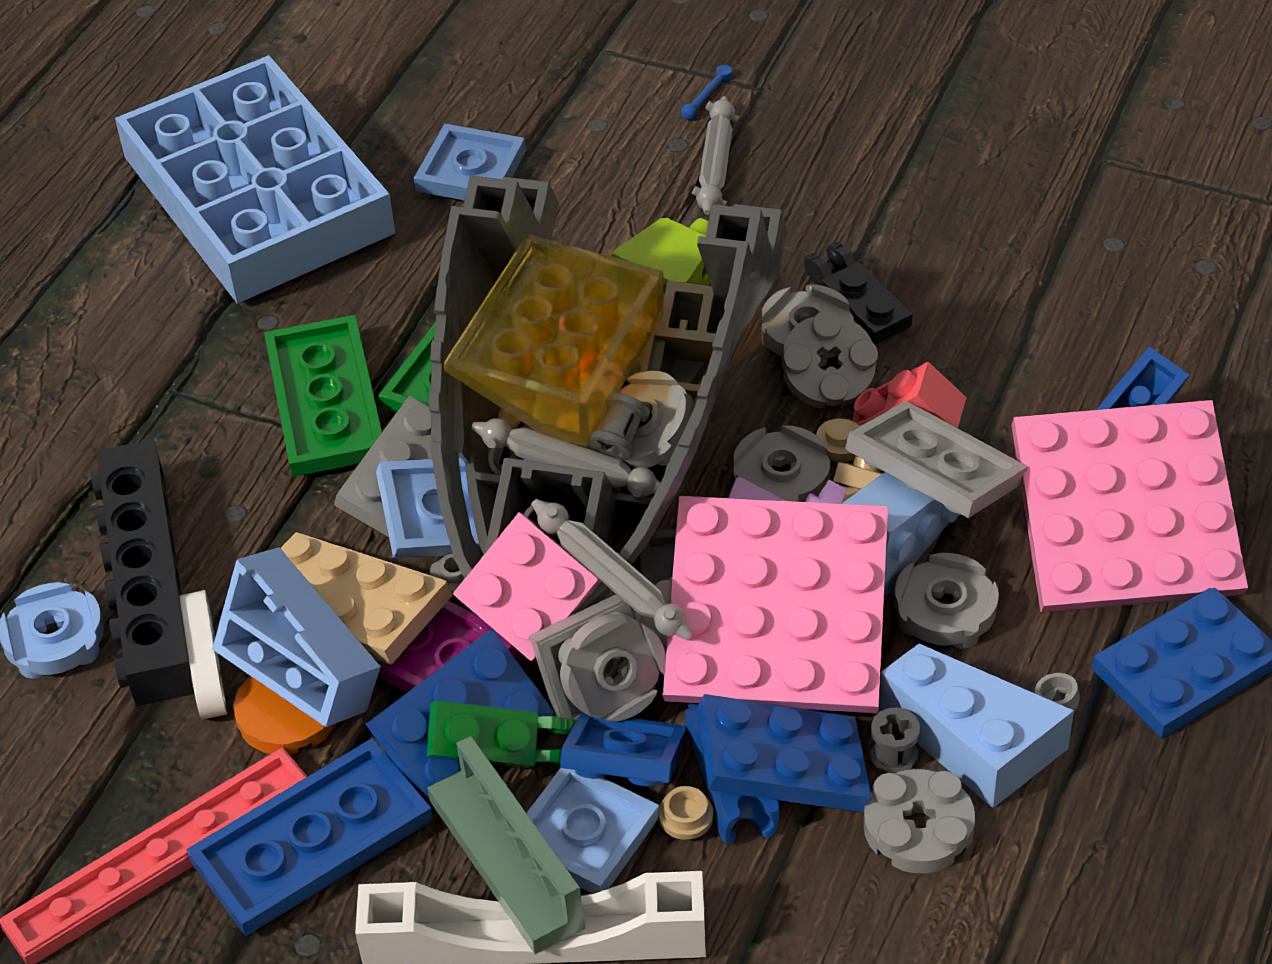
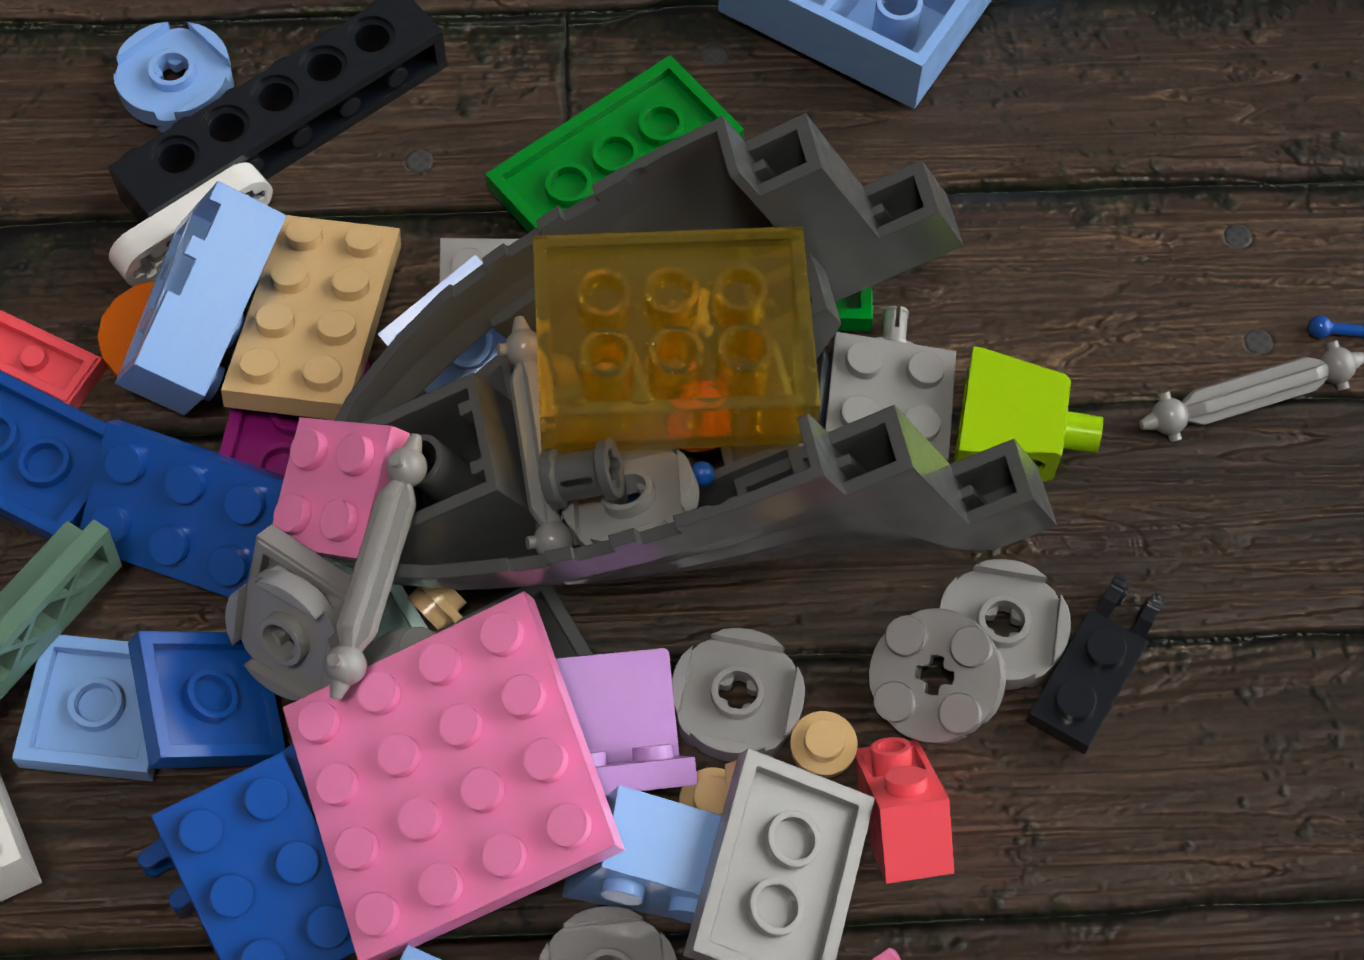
camera: 60 degrees right, 15 degrees up
(463, 153) = (1066, 131): medium blue plate -> none
(502, 734) = (162, 553): green hinge -> none
(686, 813) = (153, 796): tan plate -> none

